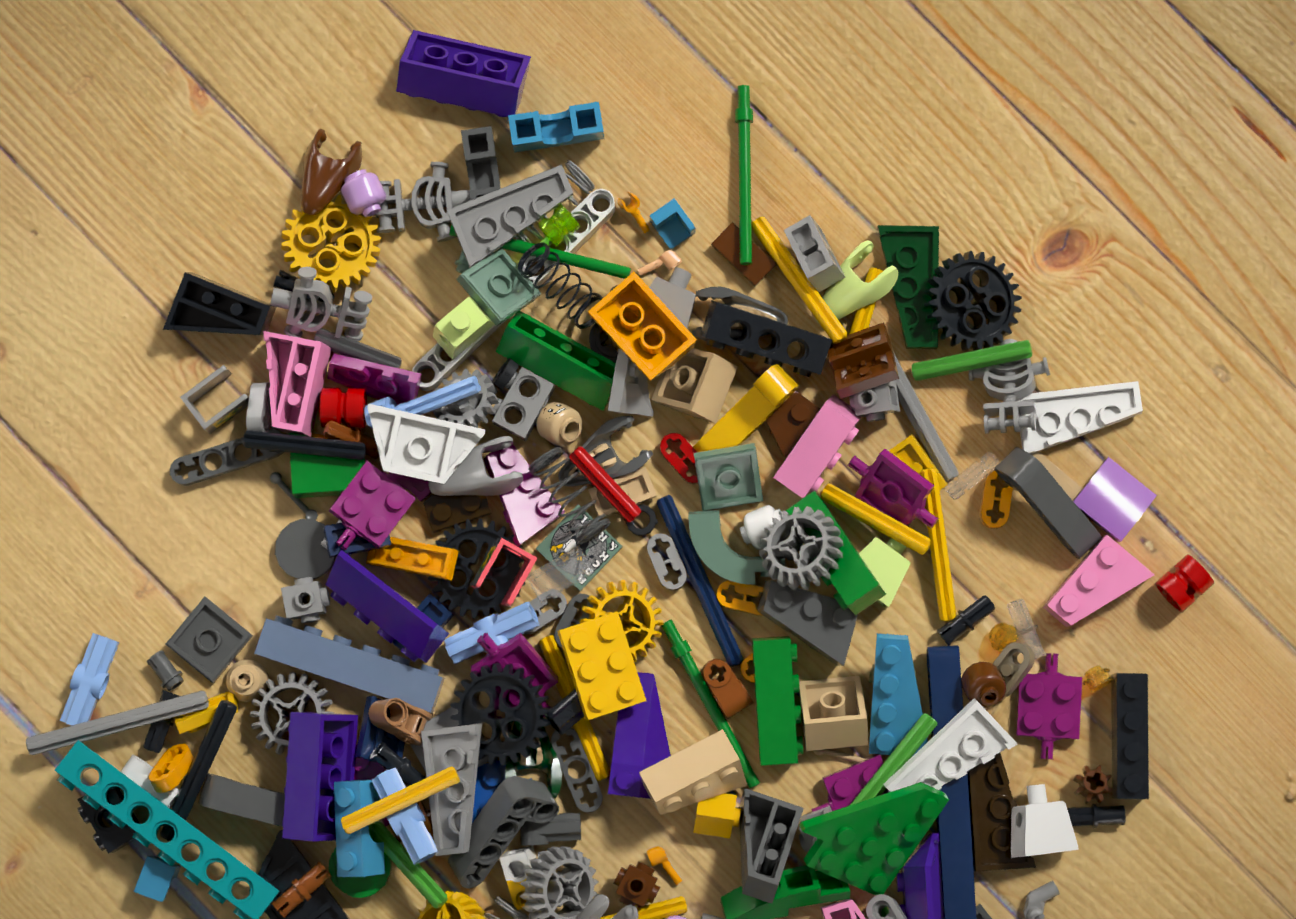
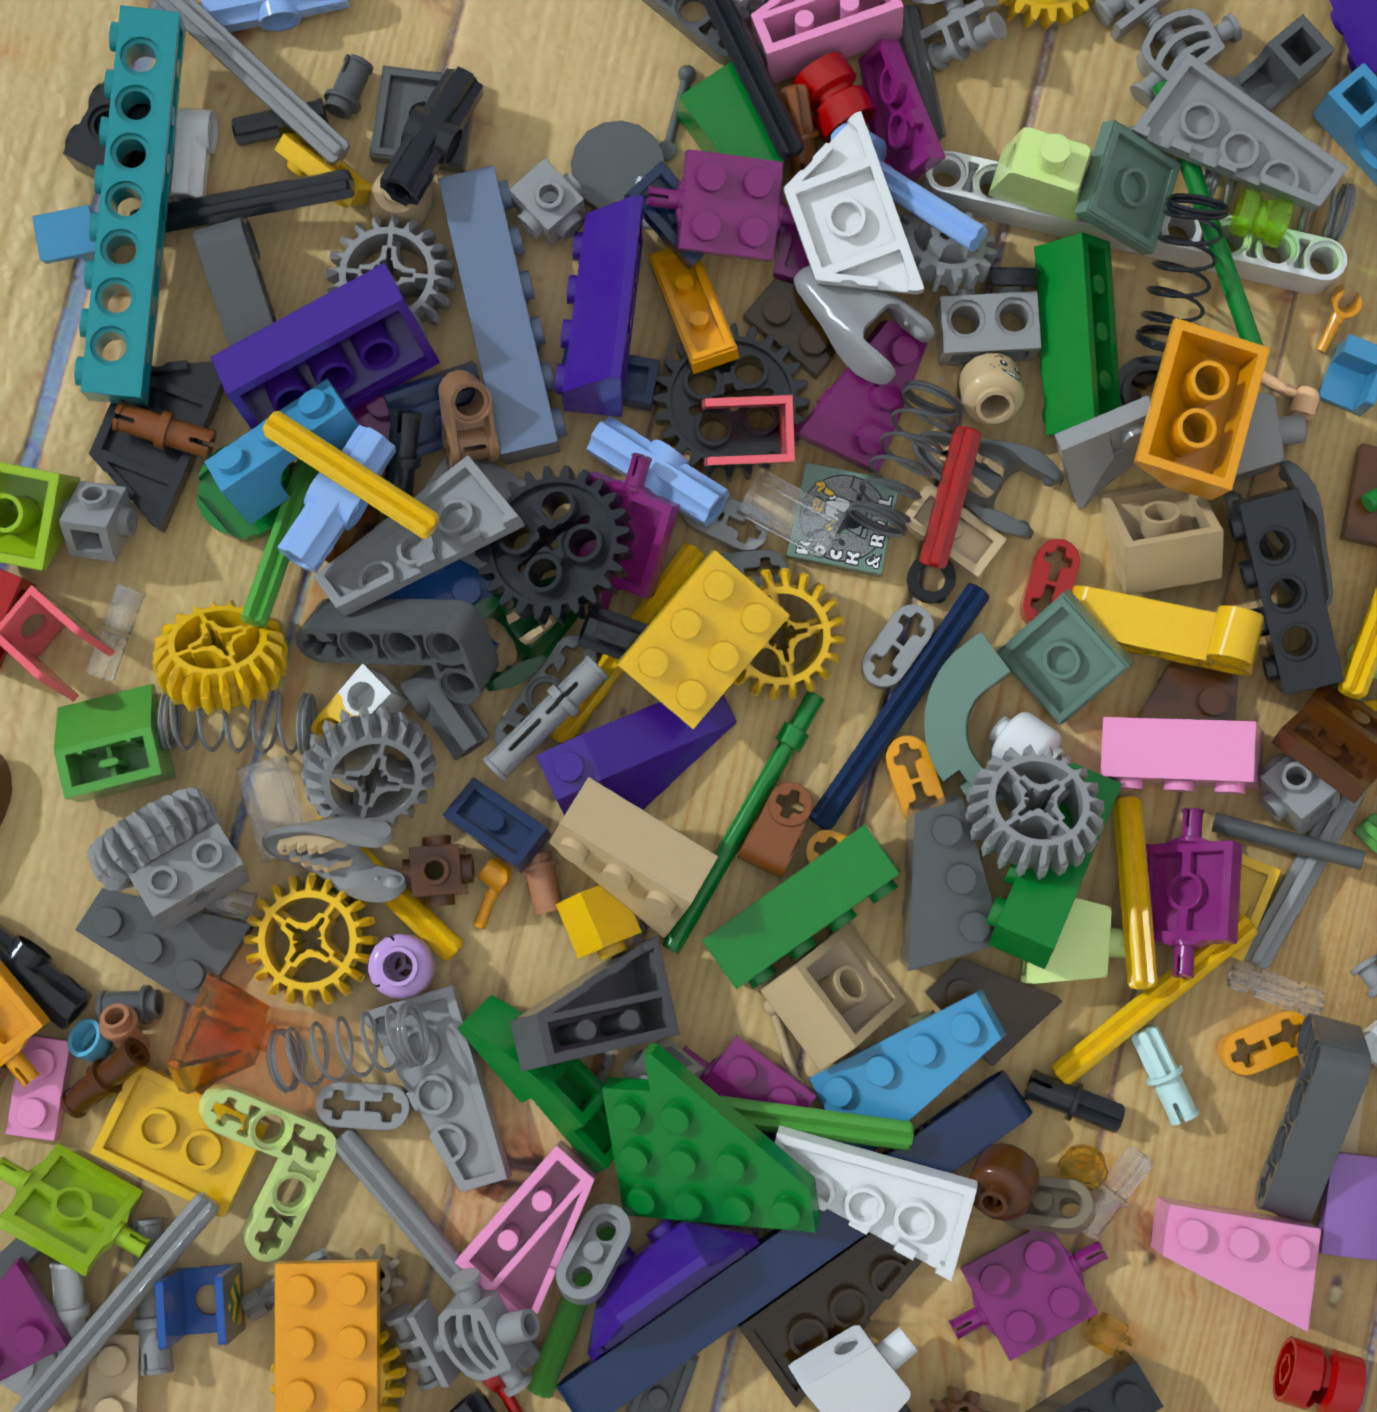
camera: 60 degrees right, 0 degrees up
(171, 768) = (221, 165): light orange beam -> none
(229, 642) = (431, 136): none -> black piece
(581, 738) = (545, 718): none -> light grey pin
(631, 838) = (497, 825): none -> dark blue plate
(676, 832) = (543, 883): none -> nougat pin
(895, 620) = (1014, 1002): none -> dark brown wing
(898, 420) = (1288, 841): none -> dark grey bar
(981, 563) = (1164, 1075): none -> light aqua axle

